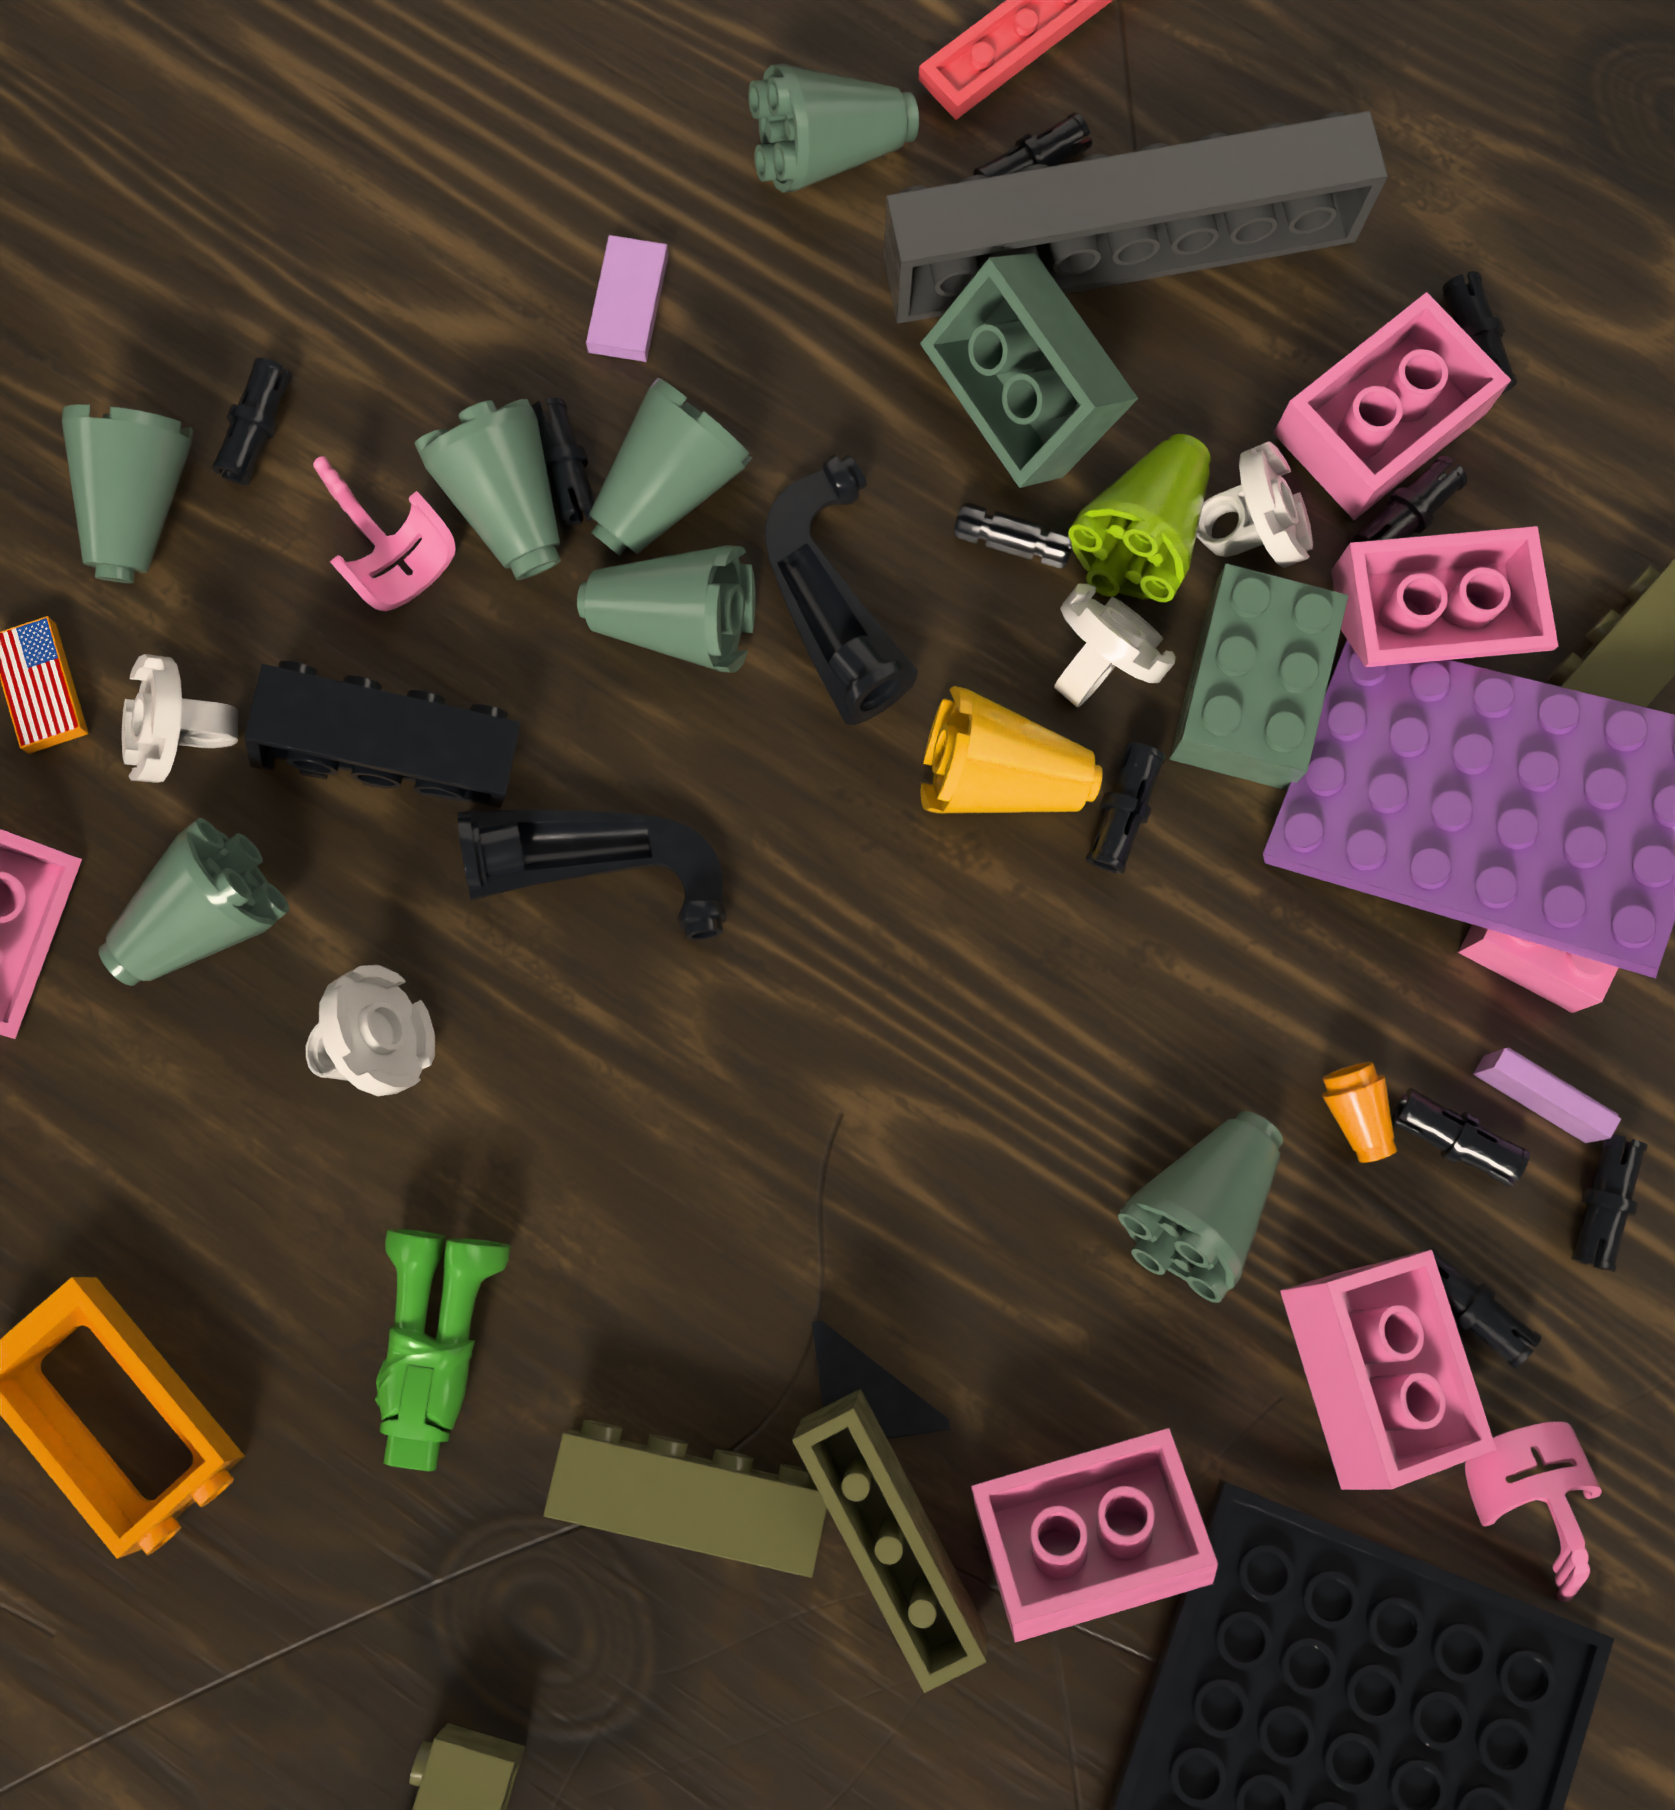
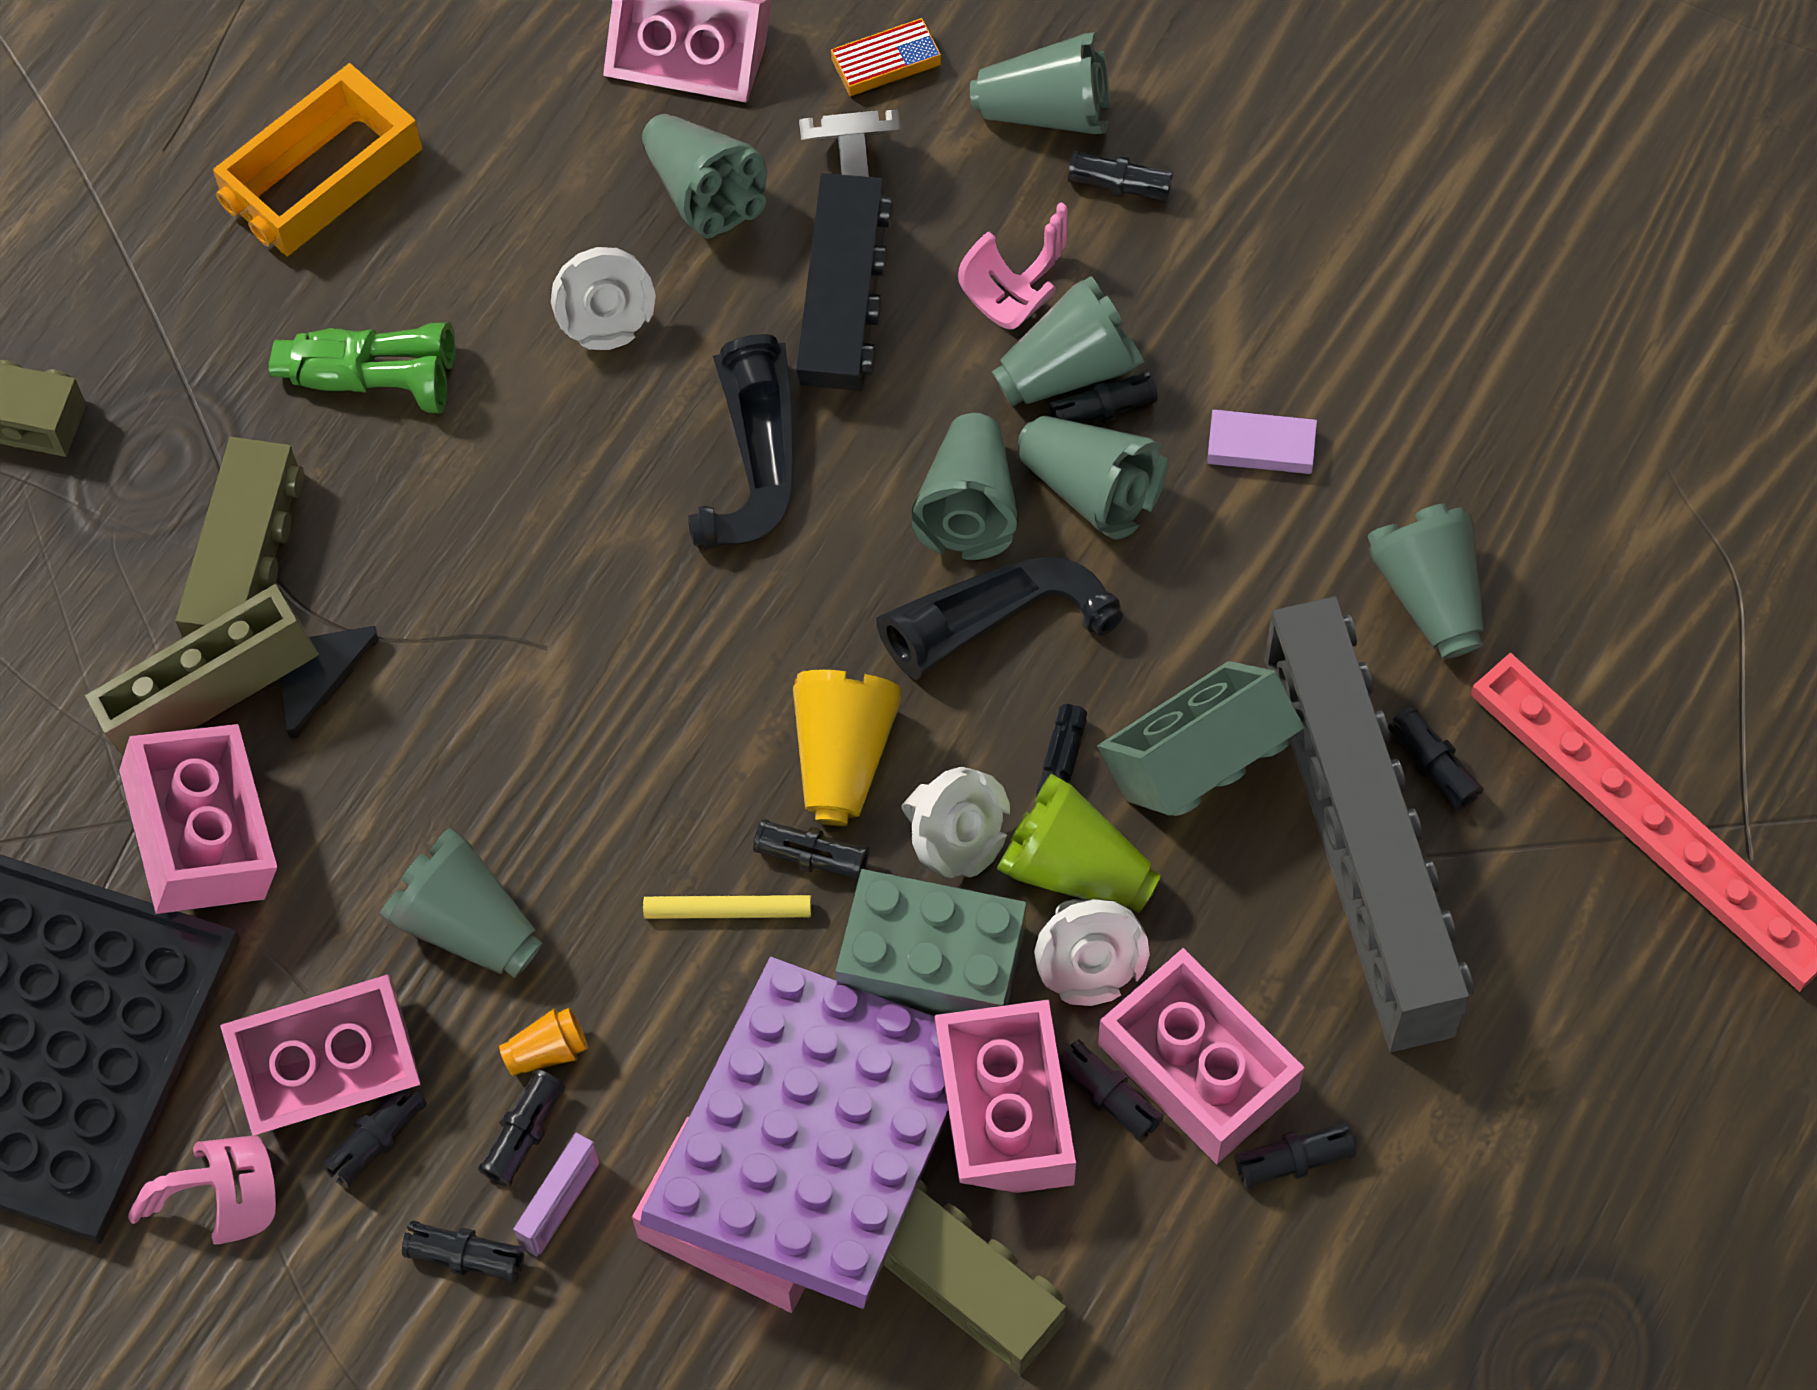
camera: 90 degrees right, 15 degrees down
(1188, 906) = (727, 907): none -> light yellow bar

